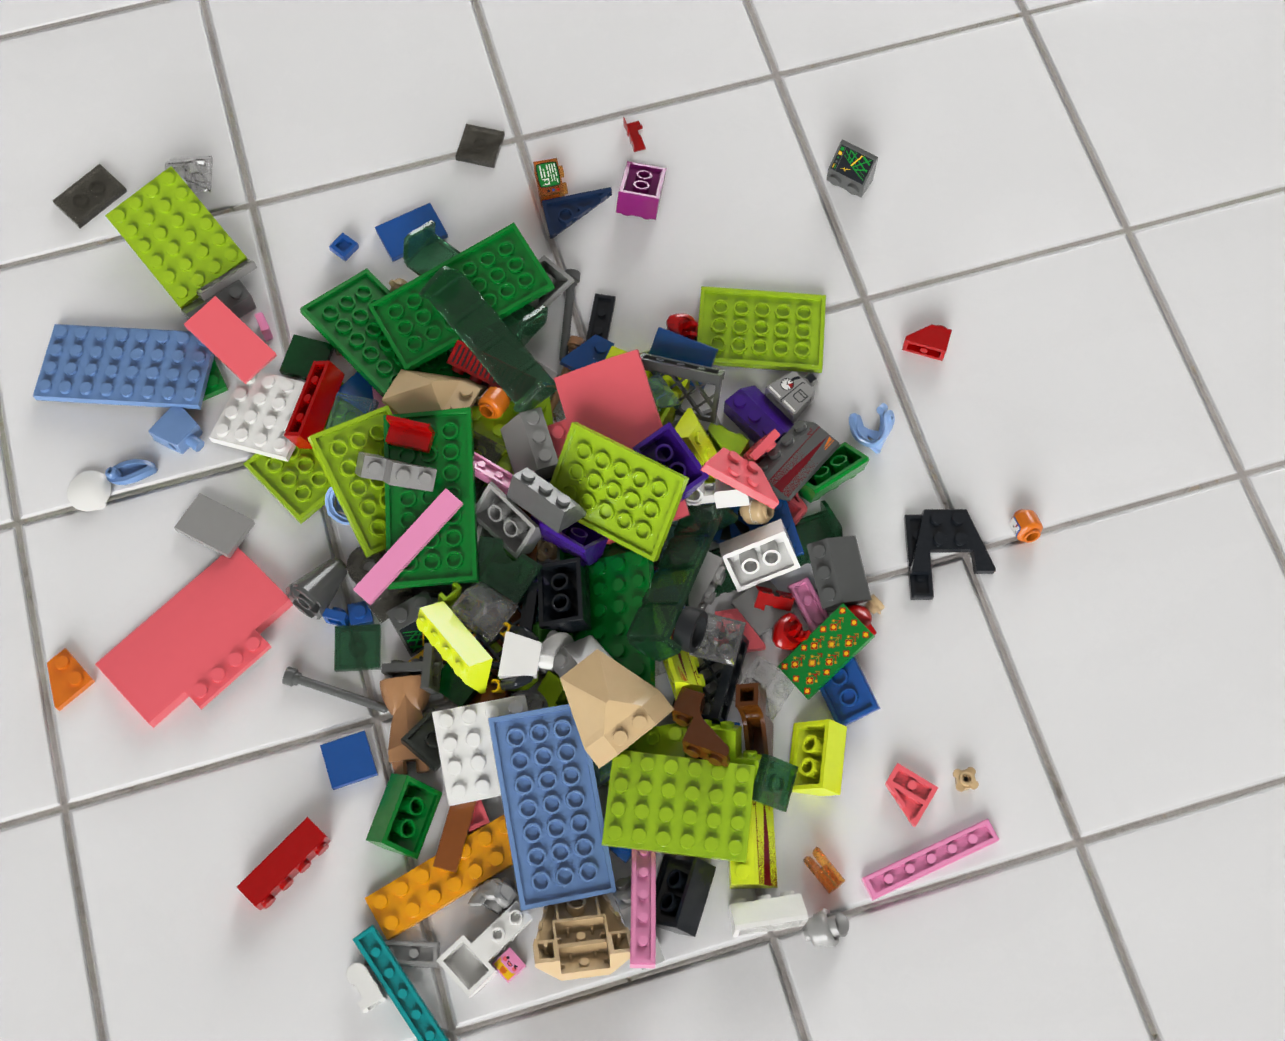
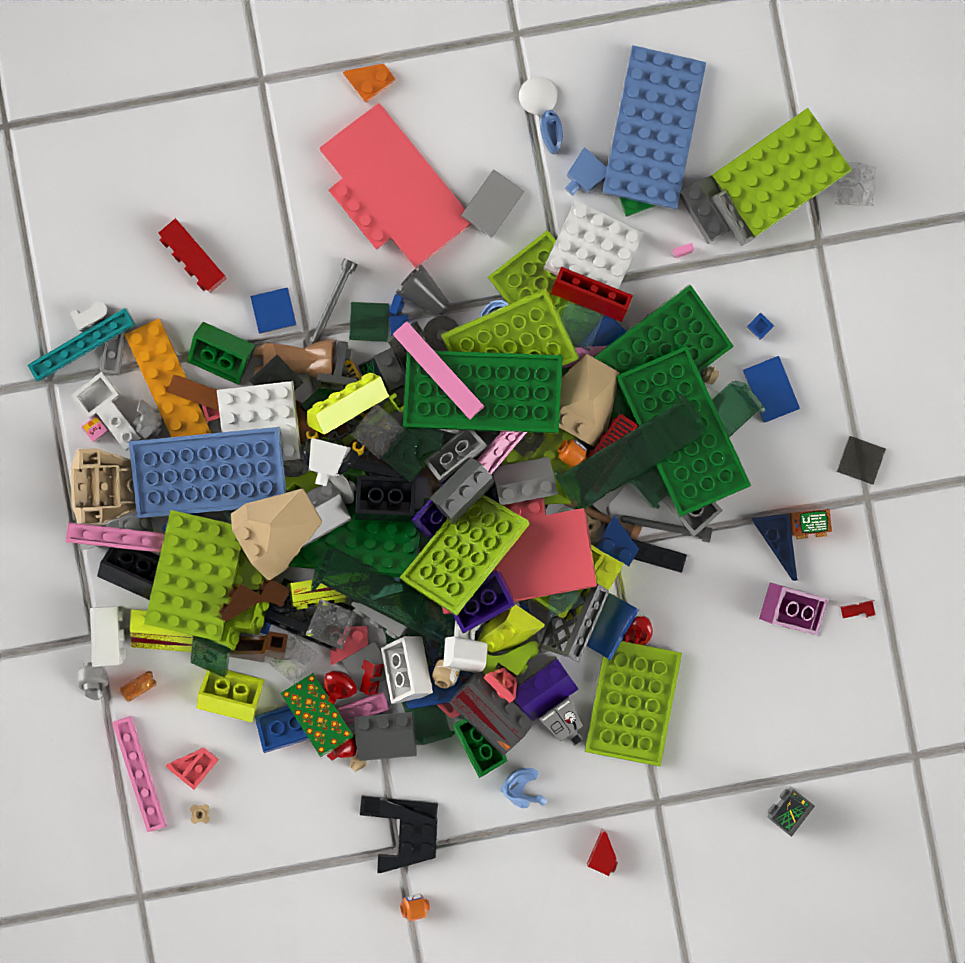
camera: 95 degrees right, 20 degrees up
(89, 196) = (842, 91): clear smoke tile -> none
(230, 340) = (663, 221): coral tile -> none
(302, 354) = (648, 287): dark green tile -> none
(395, 472) = (501, 364): light grey arch -> none
(409, 434) = (537, 377): red panel -> none
(690, 628) = (333, 601): black tyre -> none
(741, 475) = (467, 662): coral wing -> none

